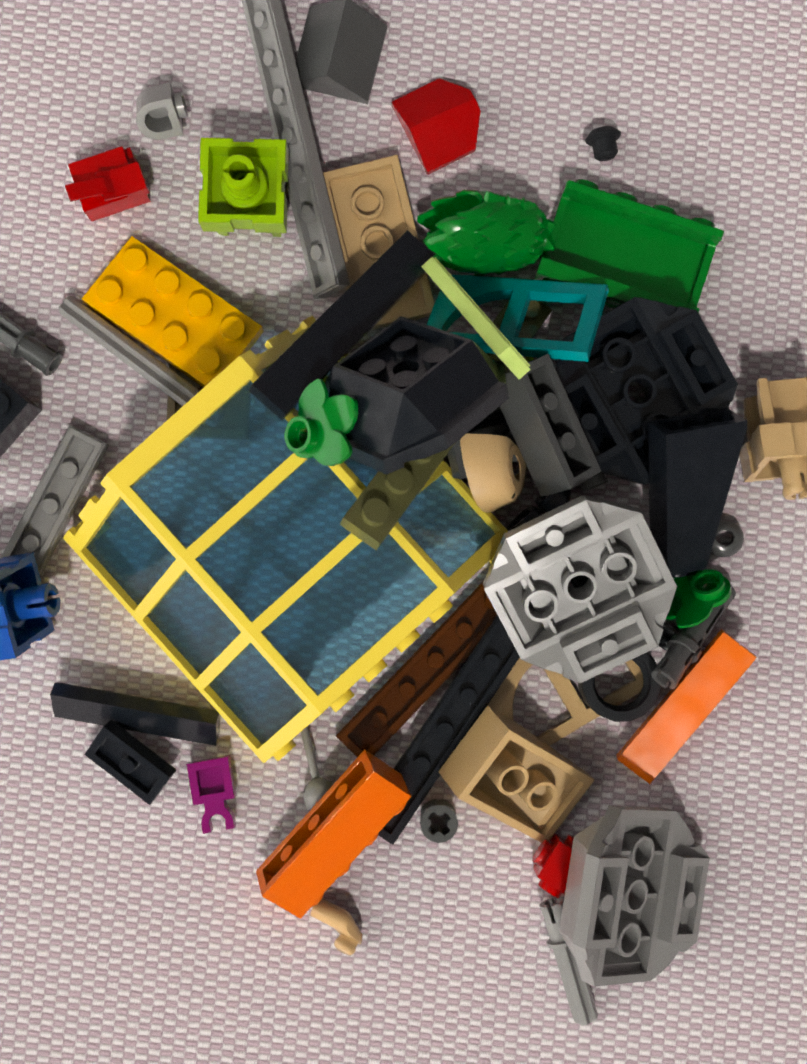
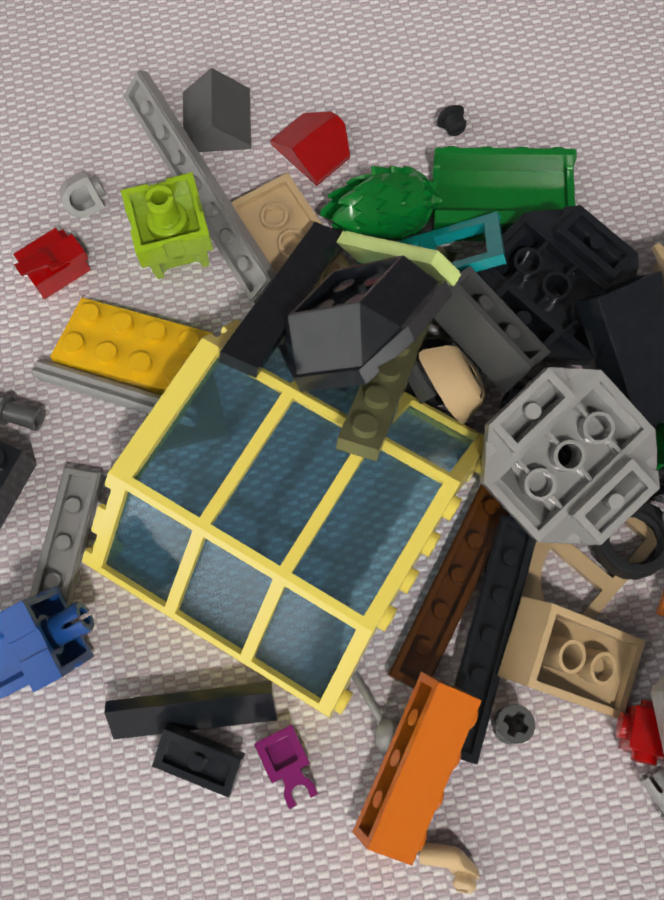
camera: 10 degrees left, 15 degrees down
(322, 425) = (294, 366): green plate -> none

